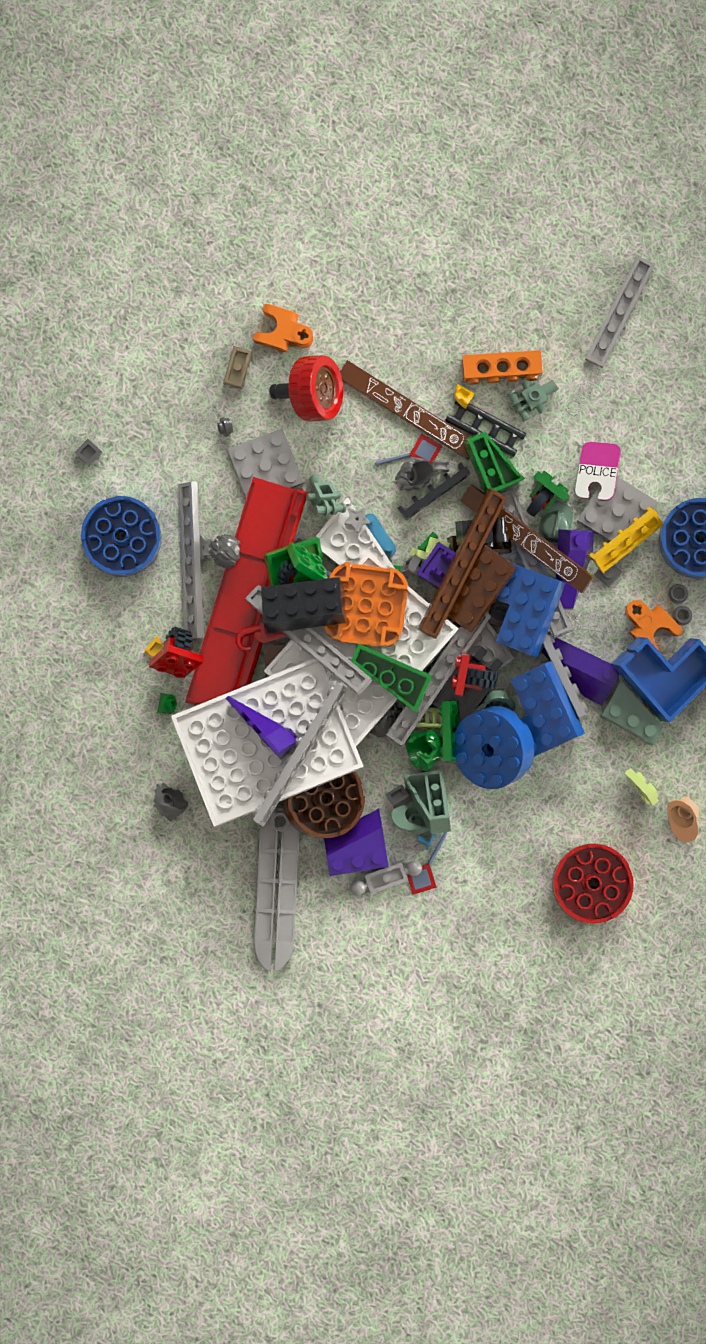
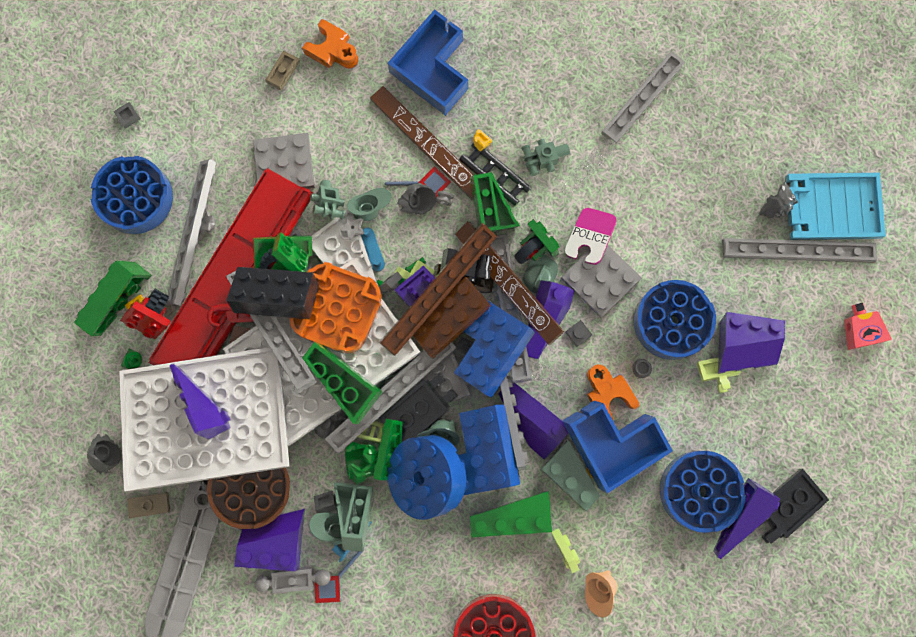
camera: 20 degrees right, 5 degrees down
(130, 646) = (110, 296): none -> green wedge
(225, 426) = (256, 119): dark grey plate -> none
(225, 551) = (219, 228): dark grey hair -> none
(225, 841) = (148, 505): none -> dark tan plate
(303, 747) = (221, 443): light grey plate -> none
(313, 388) = (342, 98): red wheel -> none
(367, 489) = (369, 204): none -> sand green piece
(383, 328) = (422, 63): none -> blue piece
(435, 493) = (433, 221): black hinge -> none
(471, 675) = (421, 400): plate -> none
(491, 360) = (515, 114): orange brick -> none
(590, 766) = (518, 517): none -> green wedge
(626, 540) = (604, 305): yellow hinge -> none
(688, 613) = (647, 388): dark grey plate -> none

